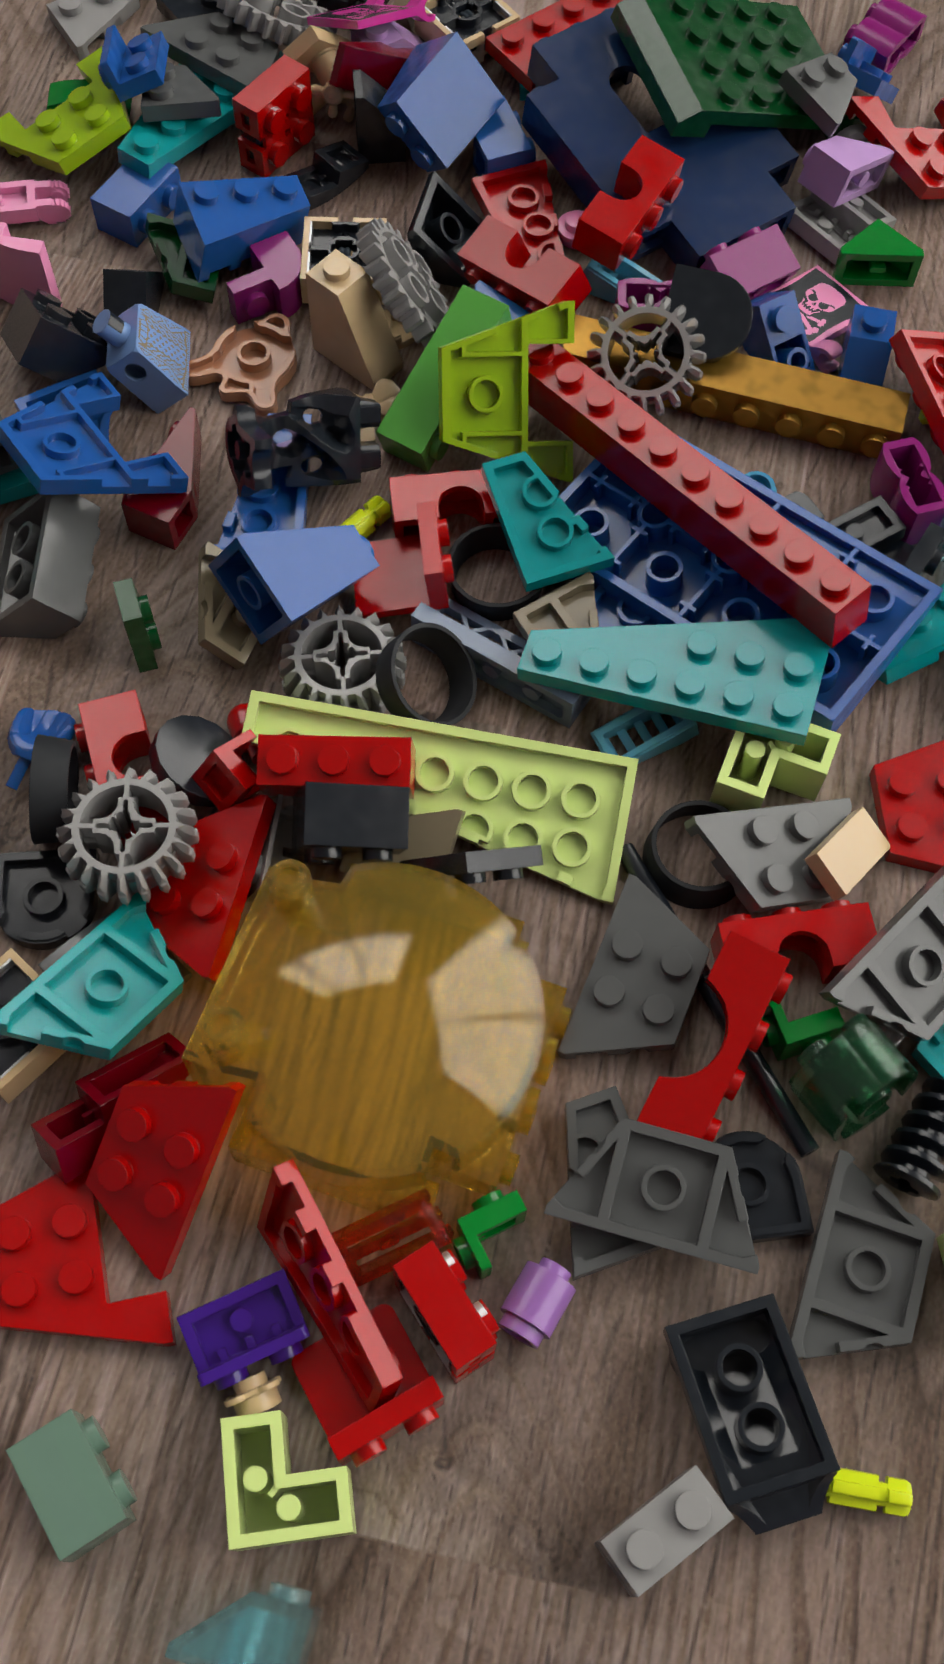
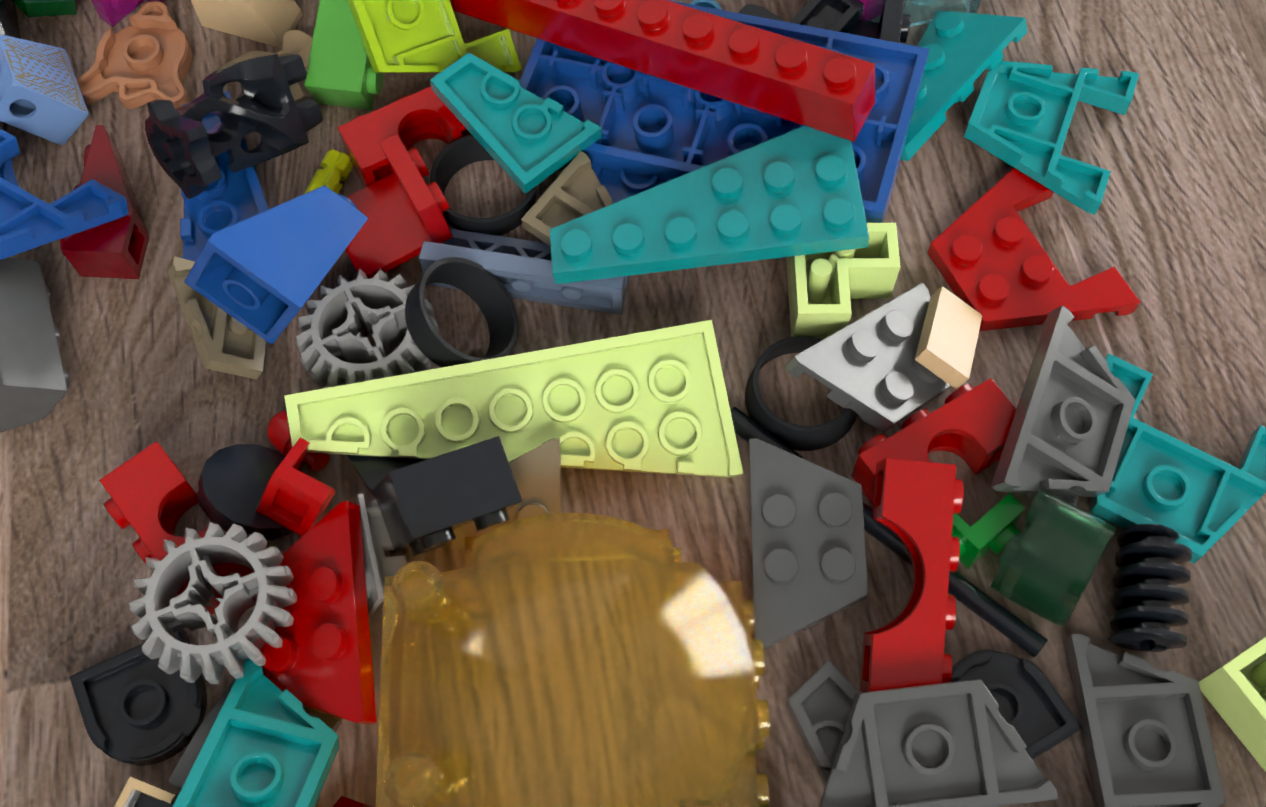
camera: 20 degrees left, 0 degrees up
(26, 727) = (67, 534): blue piece -> none
(51, 784) = (105, 580): black tyre -> none
(138, 624) = (132, 369): dark green wing -> none
(292, 760) = (364, 454): red arch -> none
(471, 866) = (596, 491): wing -> none
(667, 739) = (724, 289): medium azure slope -> none

